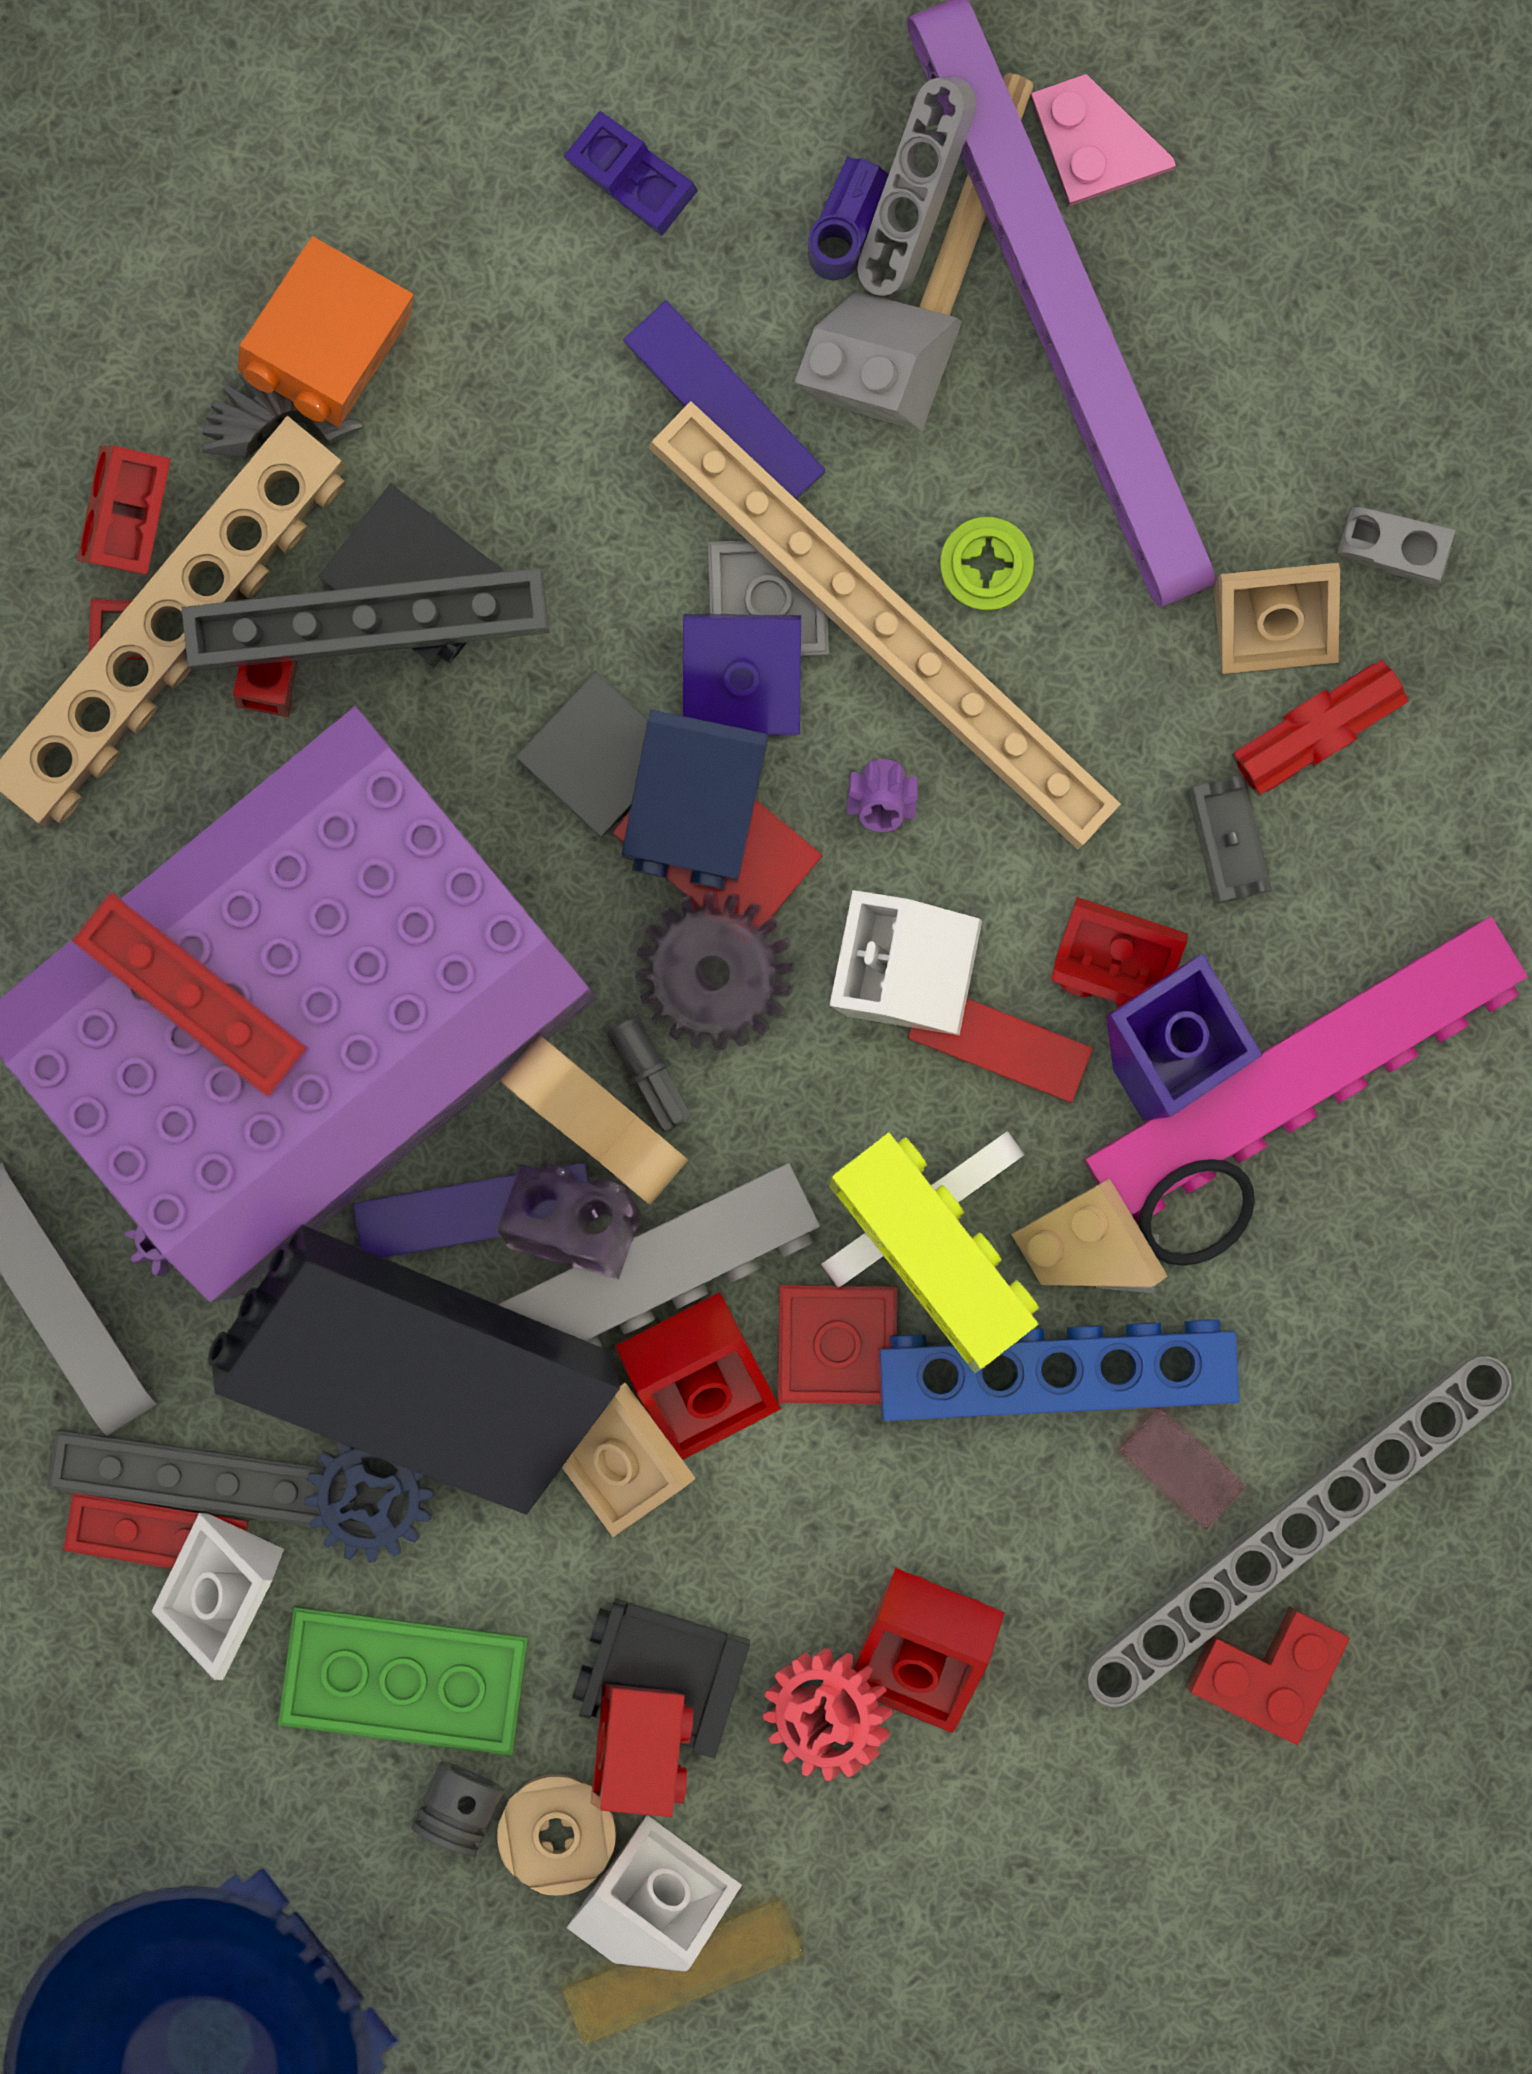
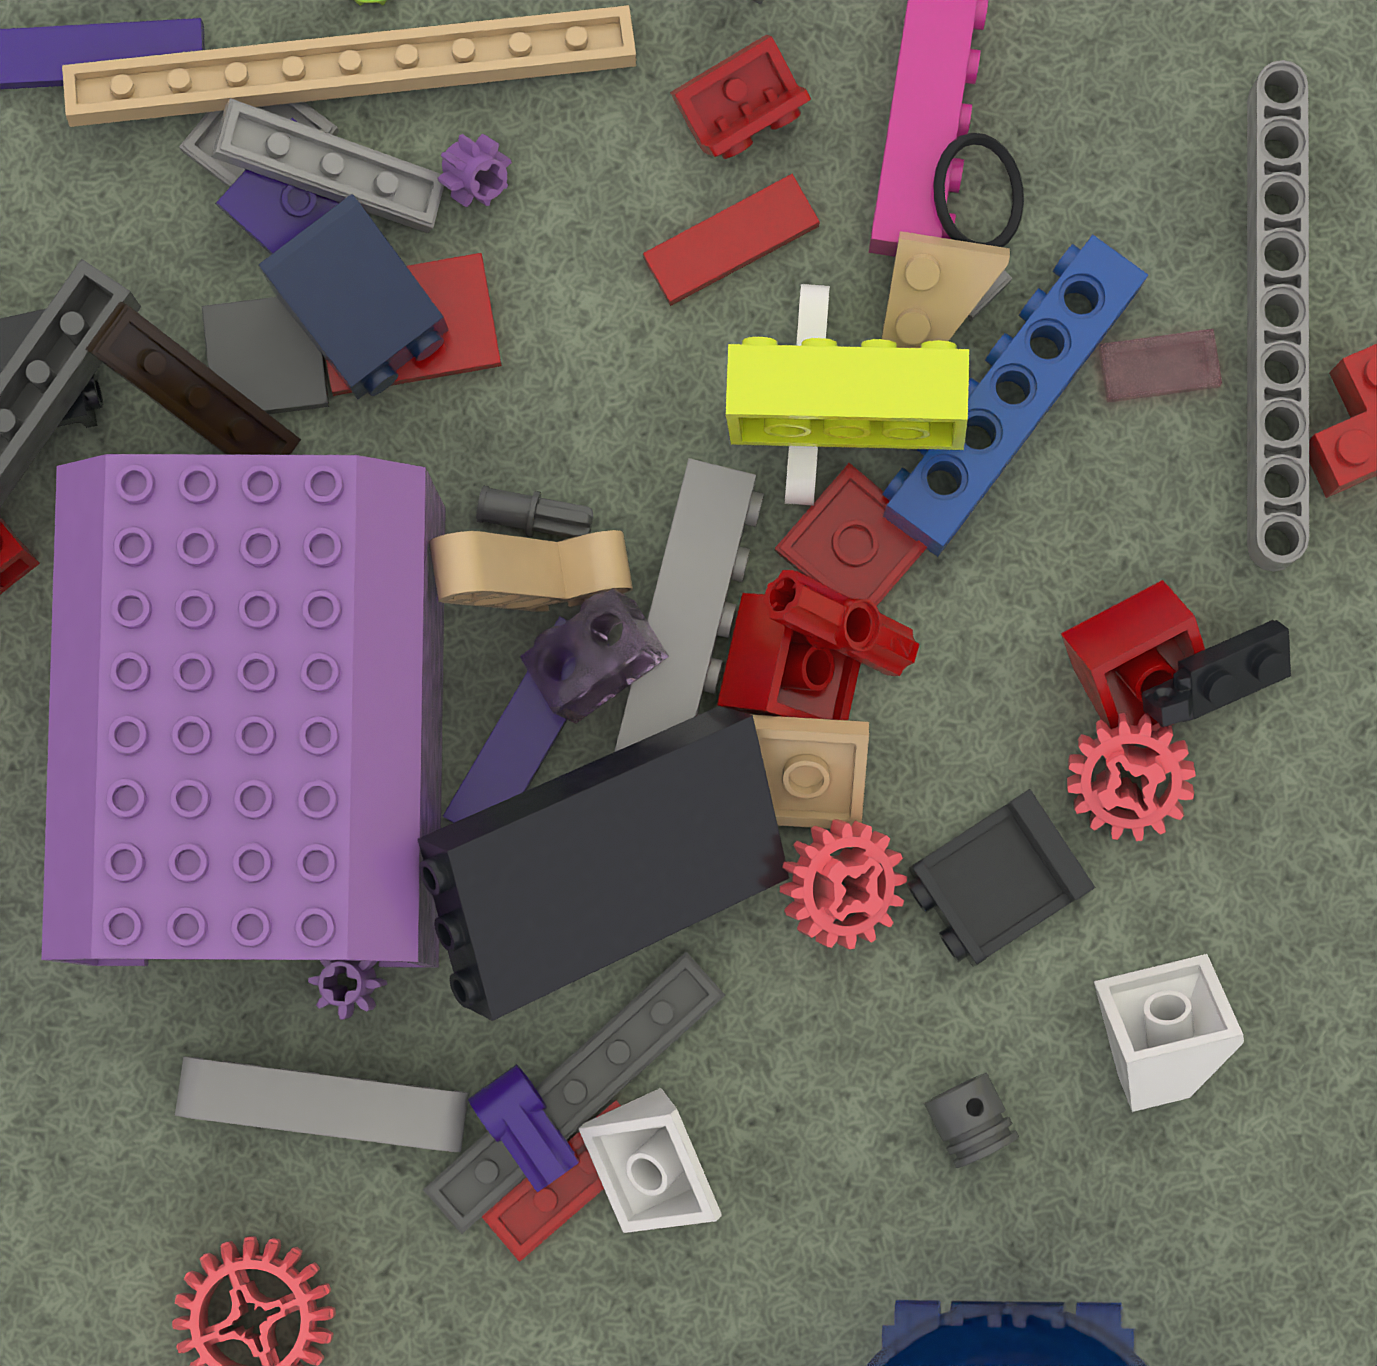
camera: 45 degrees left, 5 degrees down
(169, 1456) = (516, 1116): none -> dark purple piece
(189, 994) = (160, 763): red tile -> none
(381, 1522) = (702, 992): dark blue gear -> none
(403, 1680) = (837, 1082): bright green tile -> none
(514, 735) = (187, 387): none -> dark brown tile
(536, 1860) = (1085, 1053): tan plate -> none
(584, 1554) = (822, 897): none -> coral gear
(636, 1993) = (1225, 1102): clear yellow tile -> none
(640, 1750) = (1042, 934): red brick -> none
(686, 992) = (463, 390): gear -> none
(754, 1392) = (840, 623): none -> red piece
(786, 681) = (328, 165): none -> light grey tile
(905, 963) = (612, 252): white slope -> none
(965, 1720) = (1221, 675): none -> black hinge
(1178, 1040) = (840, 98): dark purple slope -> none

